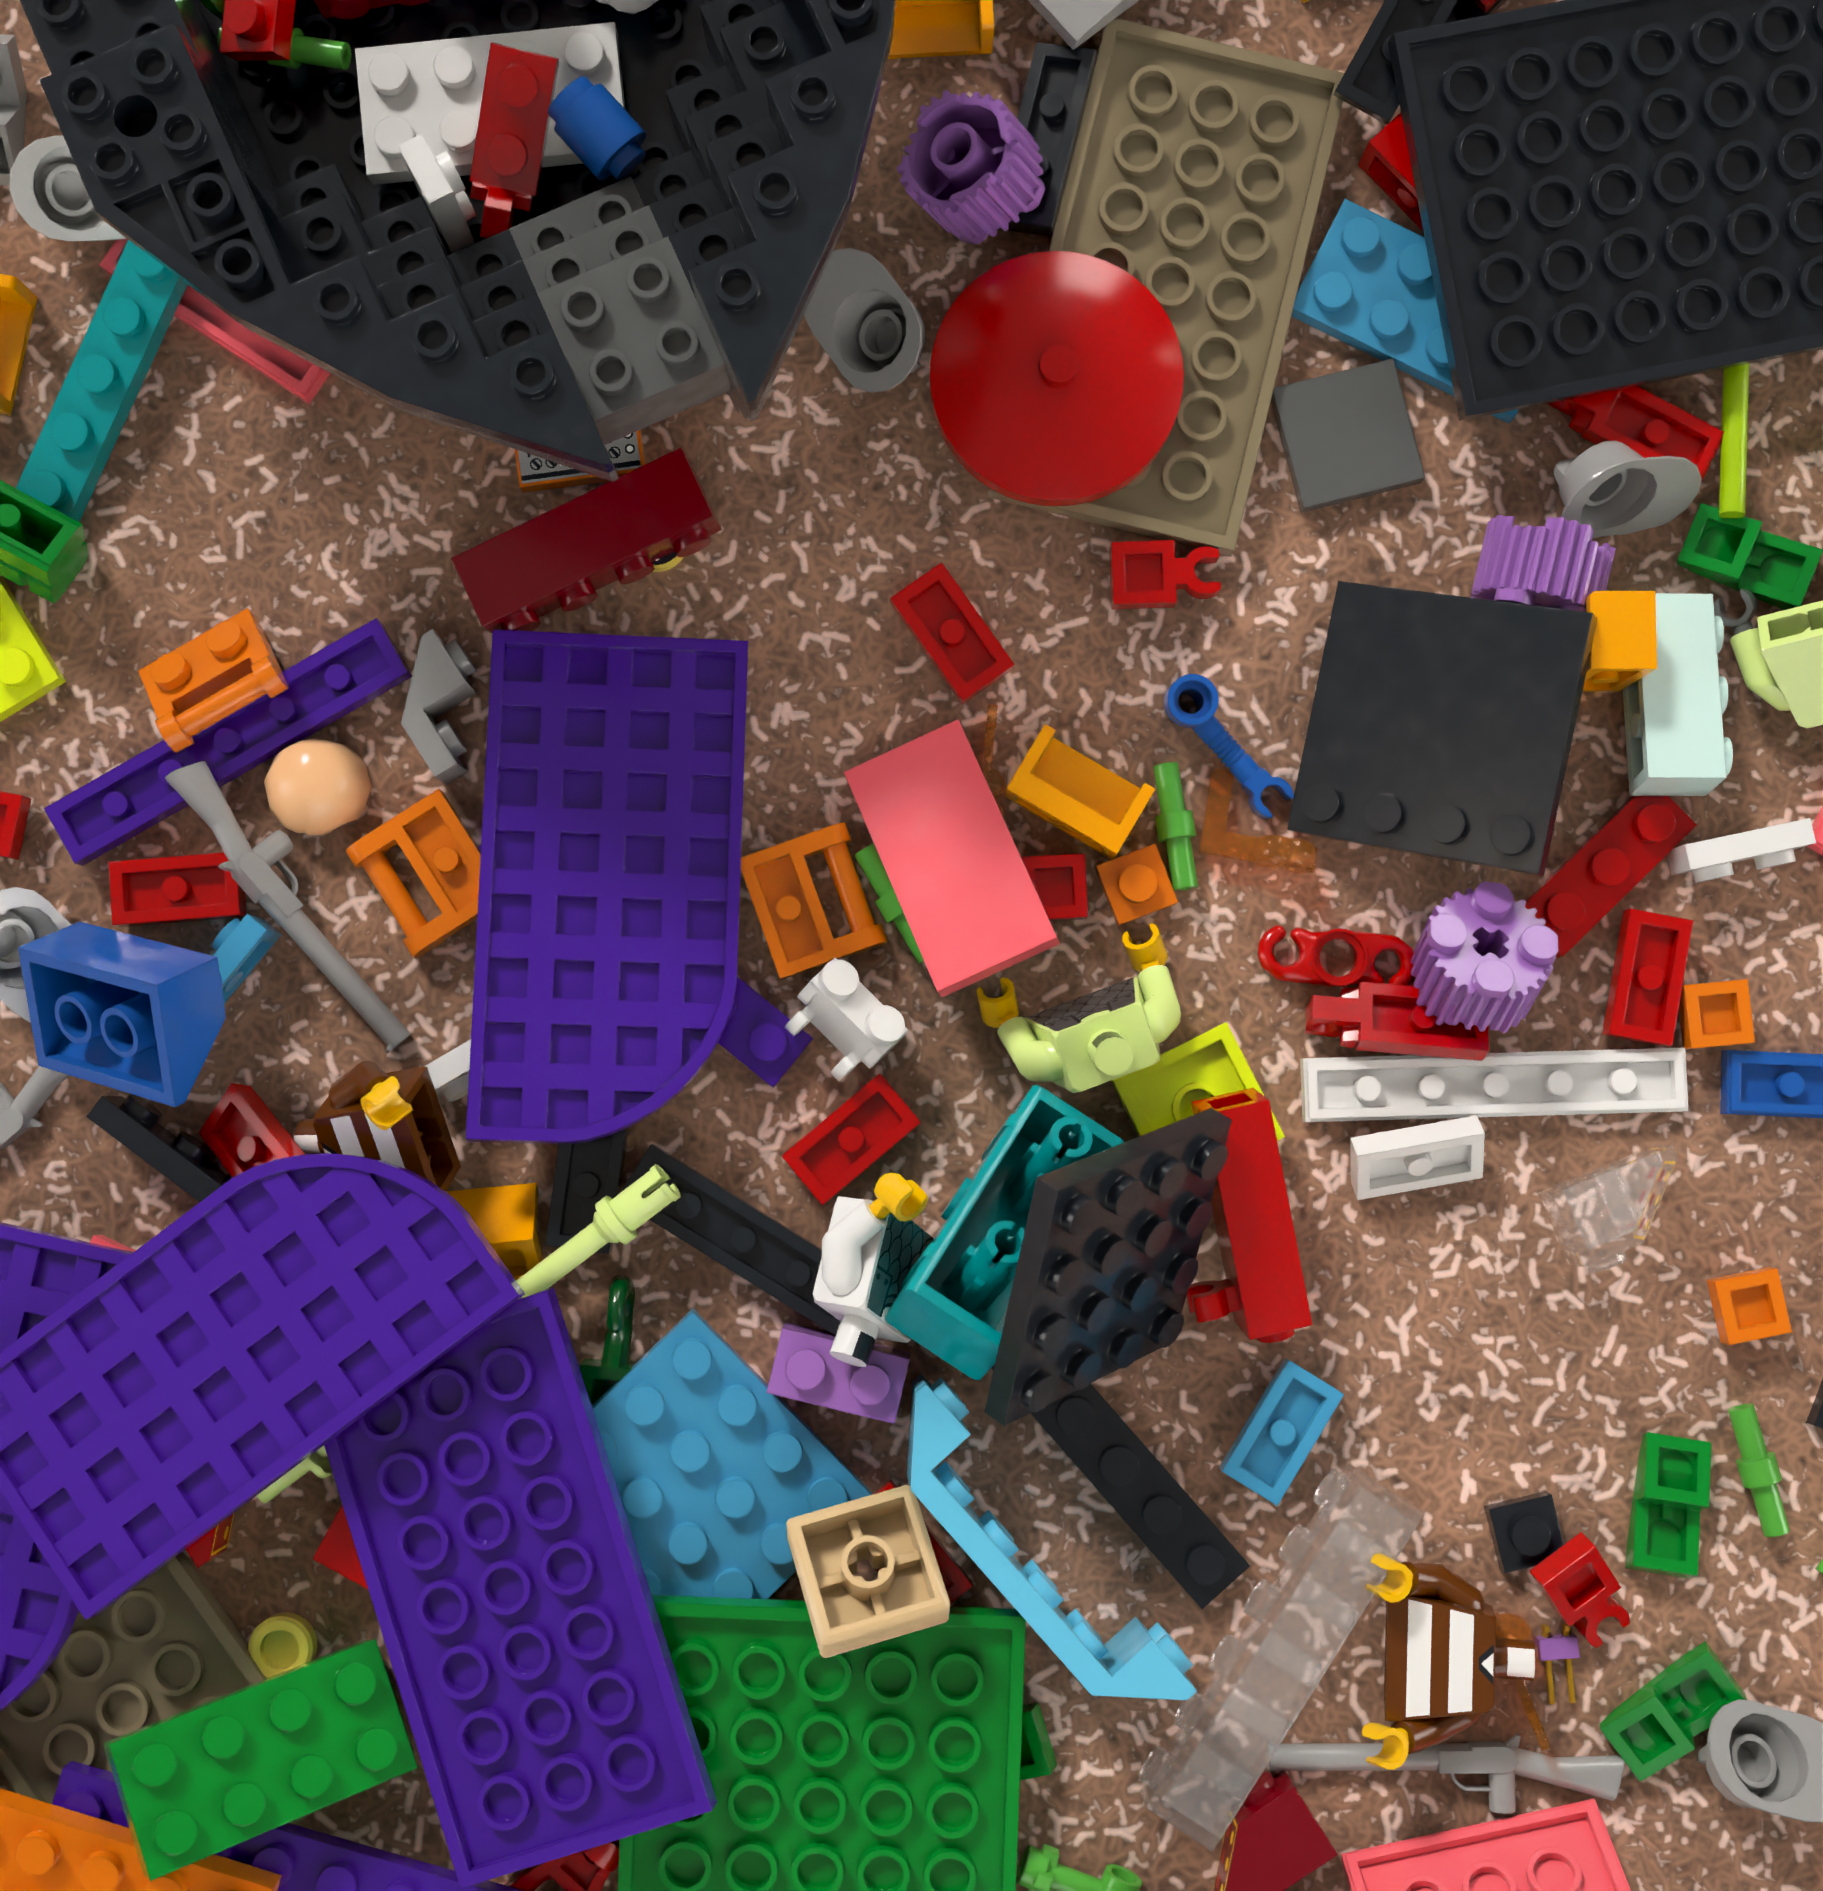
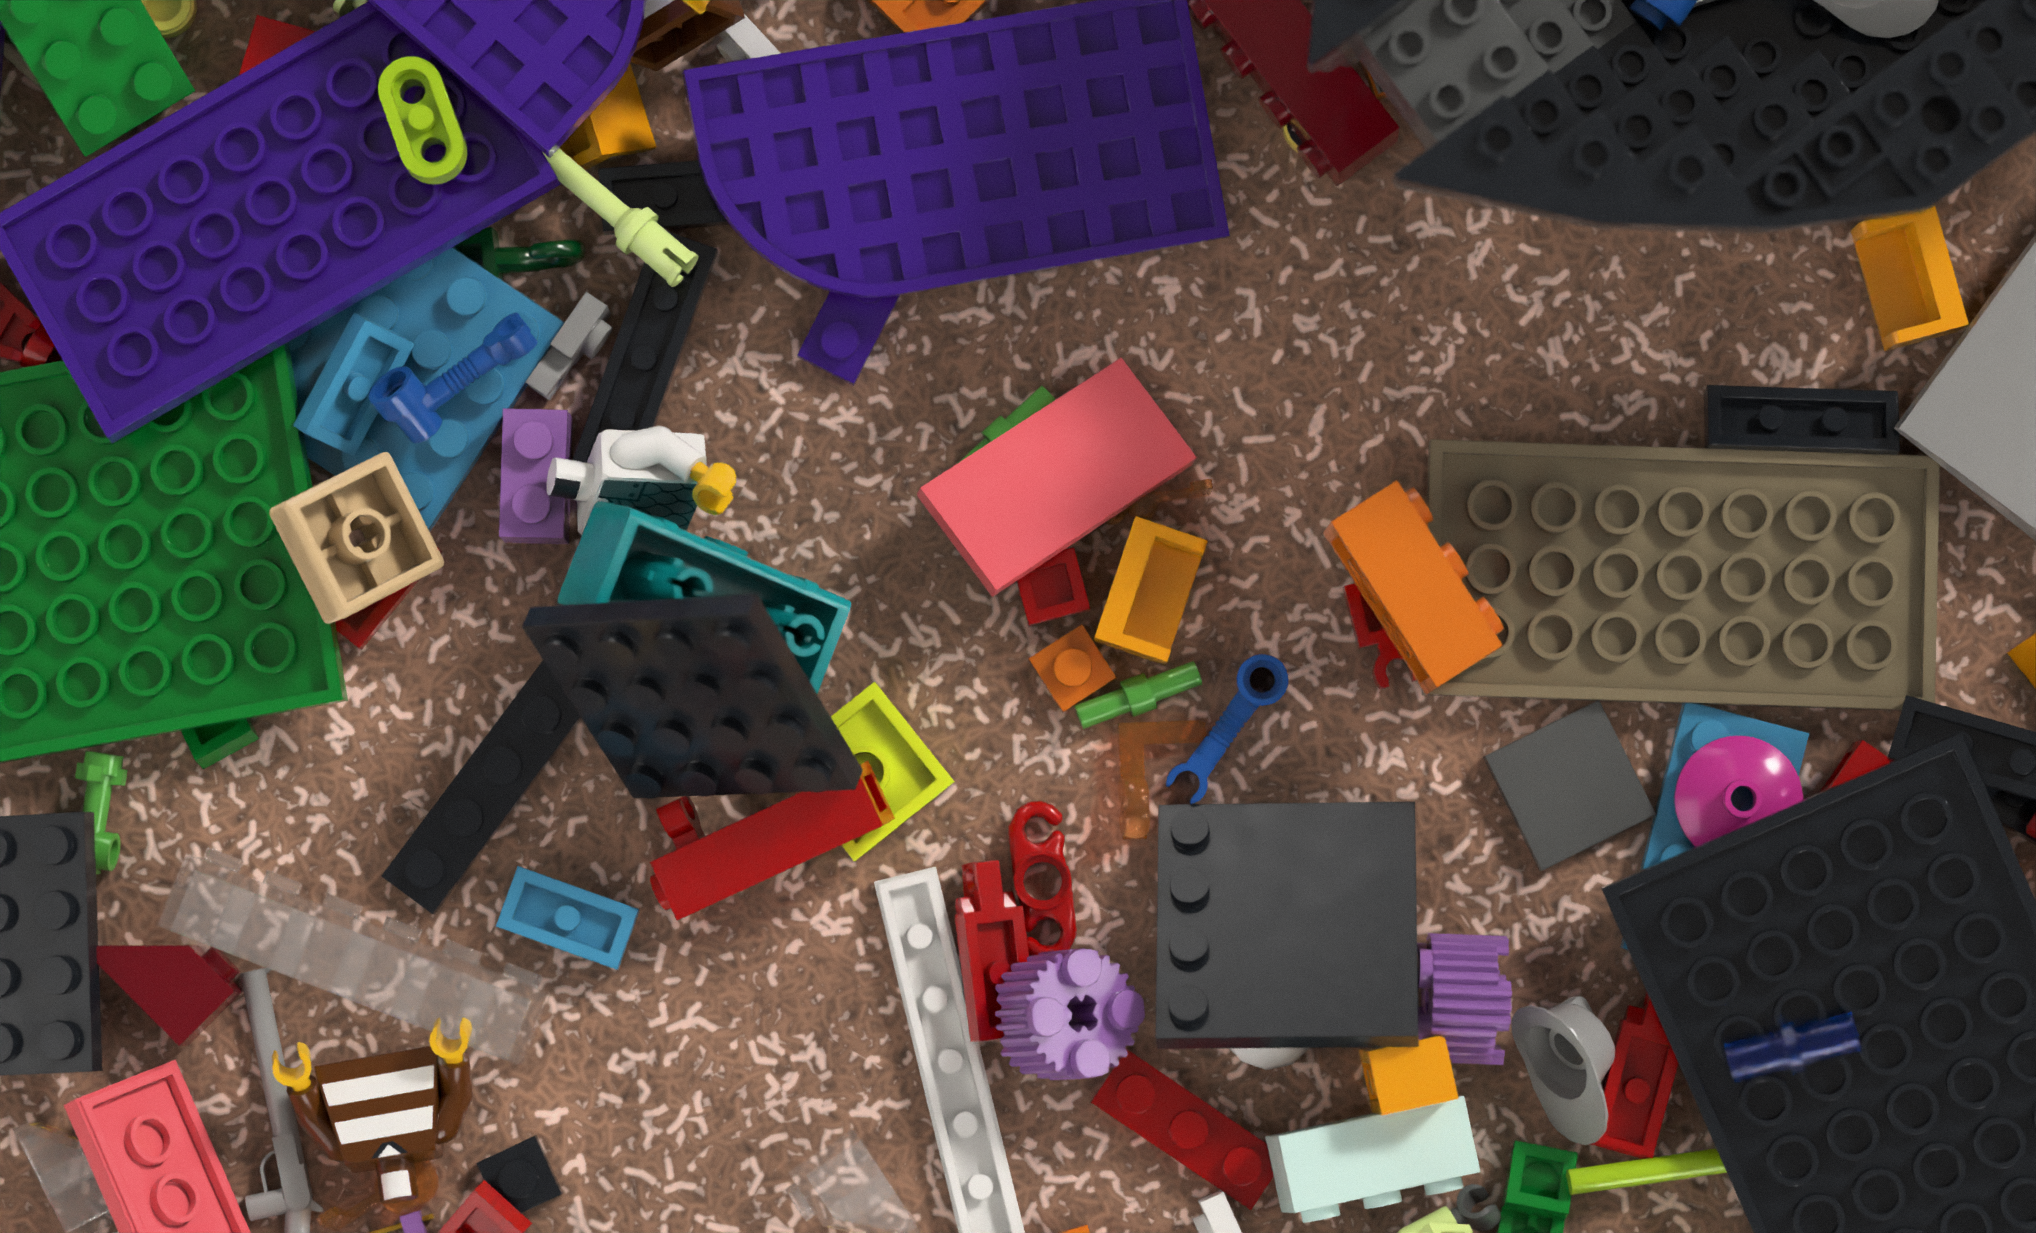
camera: 70 degrees right, 0 degrees up
(460, 1416) = (422, 123): none -> lime plate
(706, 1297) = (581, 334): none -> light grey plate
(709, 1539) = (339, 401): none -> dark azure plate
(744, 1482) = (412, 405): none -> blue brick
(791, 907) = (977, 335): orange plate -> none
(848, 1017) = (879, 412): white piece -> none
(851, 1139) = (763, 441): red plate -> none
(865, 322) = (1569, 283): light grey piece -> none
(952, 633) = (1281, 434): red plate -> none
(972, 166) = (1747, 351): medium lavender brick -> none
(1056, 378) = (1556, 480): red dish -> none
(1096, 1033) = (916, 656): yellowish green torso -> none
(1129, 1665) = (321, 820): medium azure slope -> none
(1140, 526) = (1414, 585): none -> orange brick
(1373, 289) = (1720, 767): none -> dark pink dish
(1417, 1157) = (861, 995): white plate -> none
(1647, 977) = (1088, 1190): red plate -> none
(1664, 260) = (1793, 1047): none -> clear blue pin

